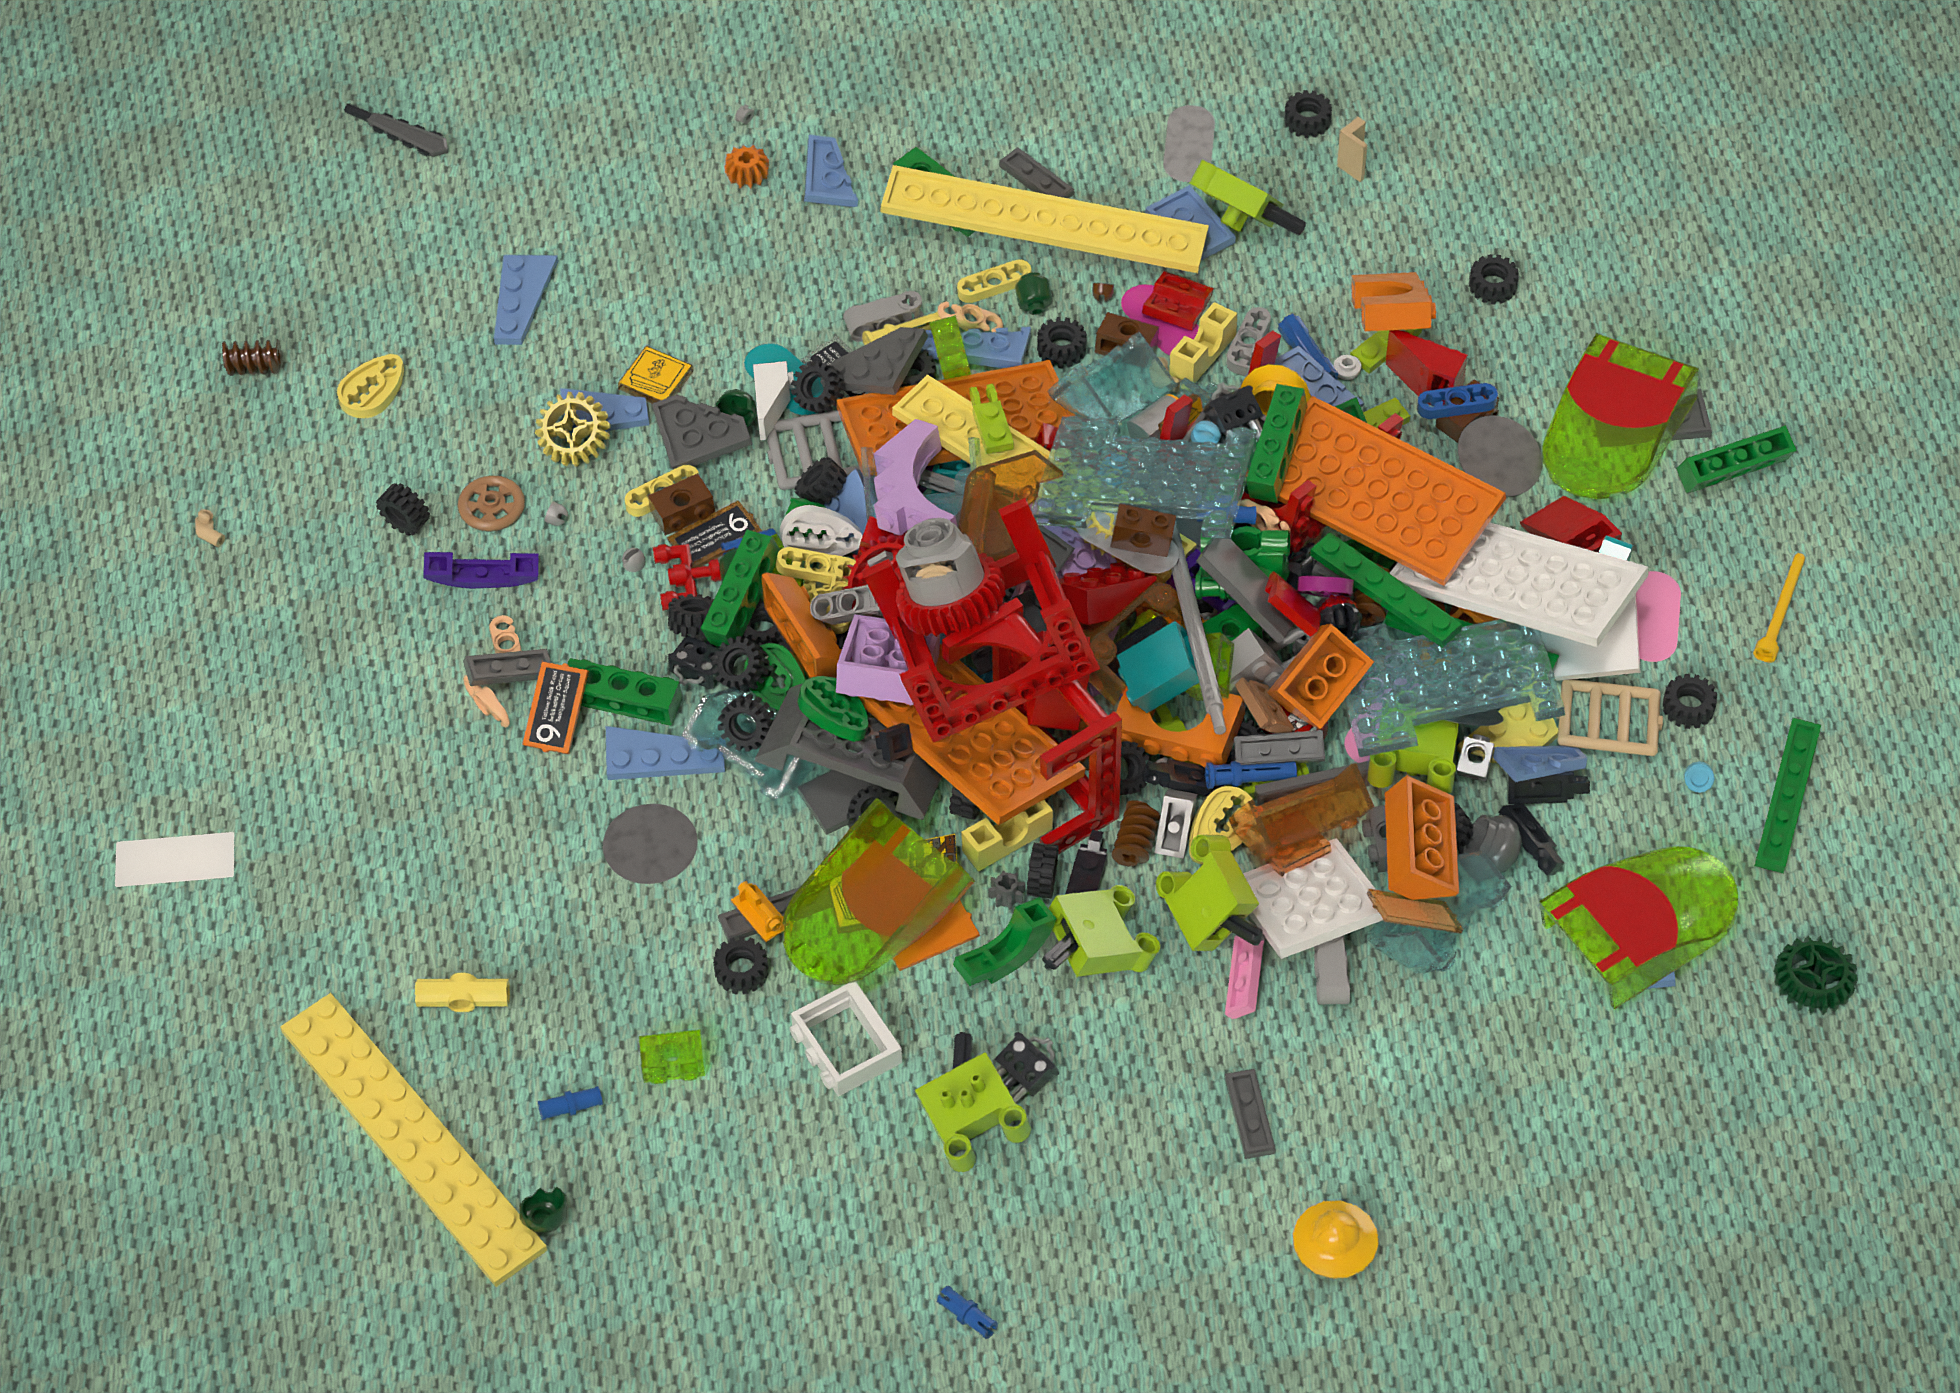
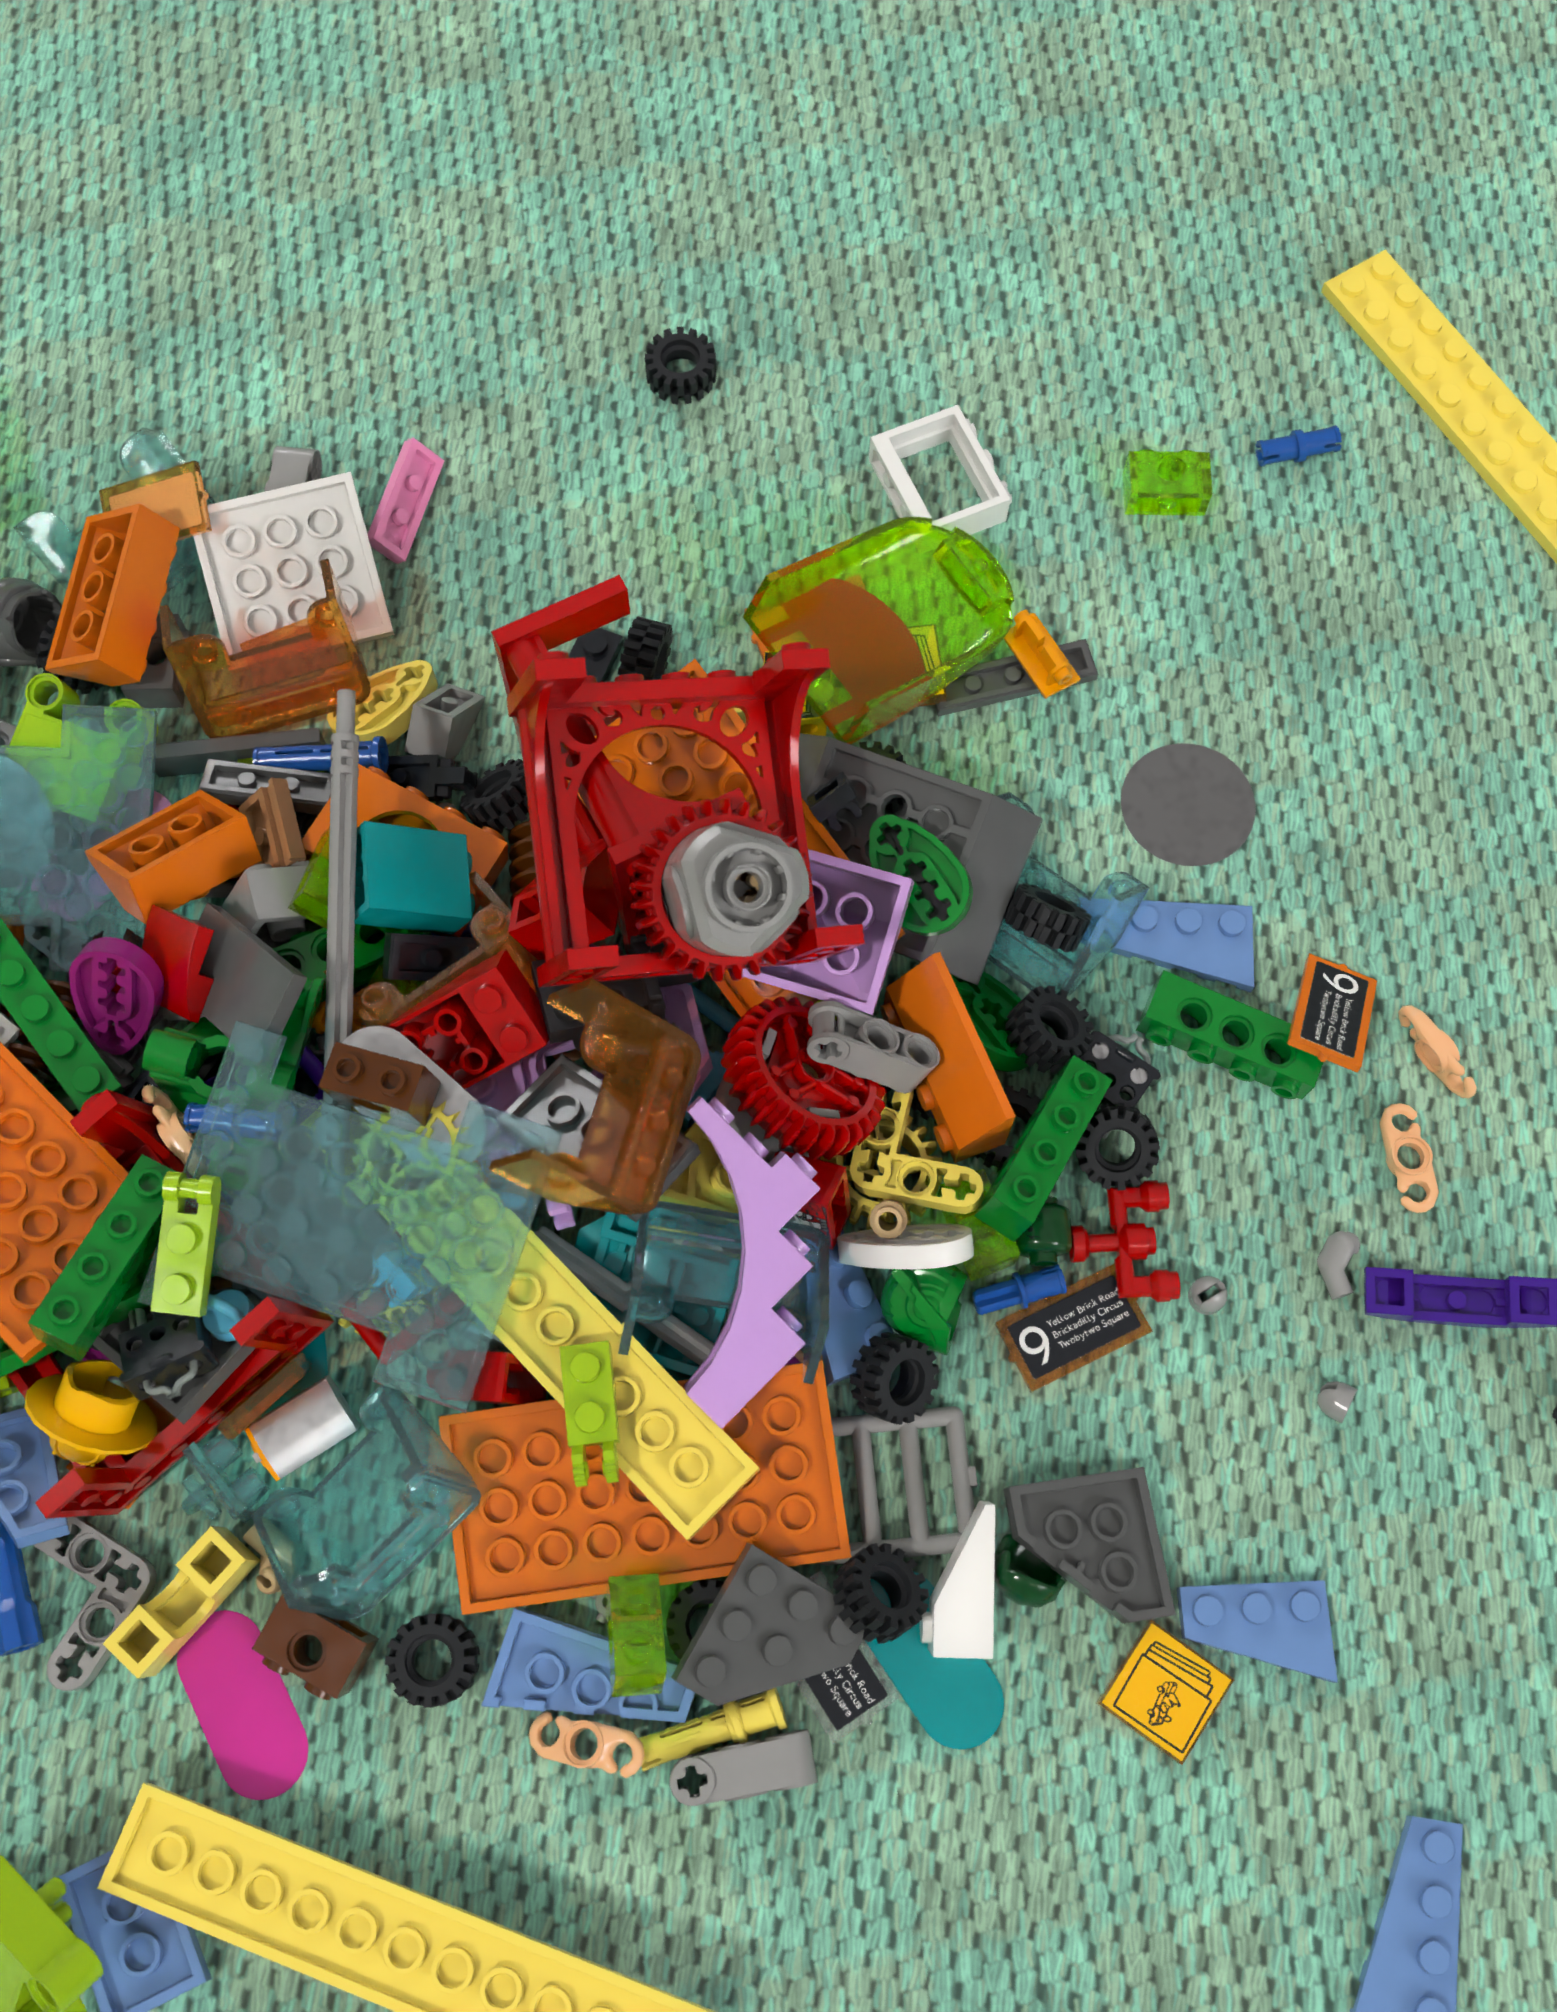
camera: 175 degrees left, 15 degrees up
(462, 992) = (1446, 603): light yellow piece -> none
(488, 521) = (1422, 1474): medium nougat plate -> none
(505, 666) = (1408, 1094): dark grey tile -> none
(544, 1210) = (1330, 312): dark green hair -> none
(551, 429) = (1305, 1572): light yellow gear -> none
(555, 584) = (1333, 1261): none -> light grey arm
(665, 480) = (1183, 1403): light yellow beam -> none
(681, 504) = (1155, 1374): reddish brown brick -> none
(744, 980) = (1072, 575): black tyre -> none
(832, 540) = (883, 1228): none -> tan pin
(967, 1312) = (827, 154): blue pin -> none
(969, 1103) = (791, 370): lime piece -> none
(999, 272) = (487, 1837): light yellow beam -> none
(1006, 890) = (699, 641): dark grey gear -> none
(1012, 948) = (714, 565): green arch -> none
(1030, 1058) = (713, 416): black piece -> none
(1033, 293) = (461, 1785): dark green head -> none
(1054, 1123) = (680, 347): none -> black tyre
(1095, 936) = (589, 537): lime piece -> none
(1102, 289) = (328, 1792): reddish brown hinge -> none
(1136, 834) = (490, 718): reddish brown piece -> none
(1177, 300) = (203, 1738): red slope -> none
(1213, 898) = (423, 568): lime piece -> none
(1231, 440) = (186, 1245): none -> lime plate
(1249, 1114) = (444, 340): dark grey tile -> none
(1335, 1239) = (381, 162): yellow helmet -> none

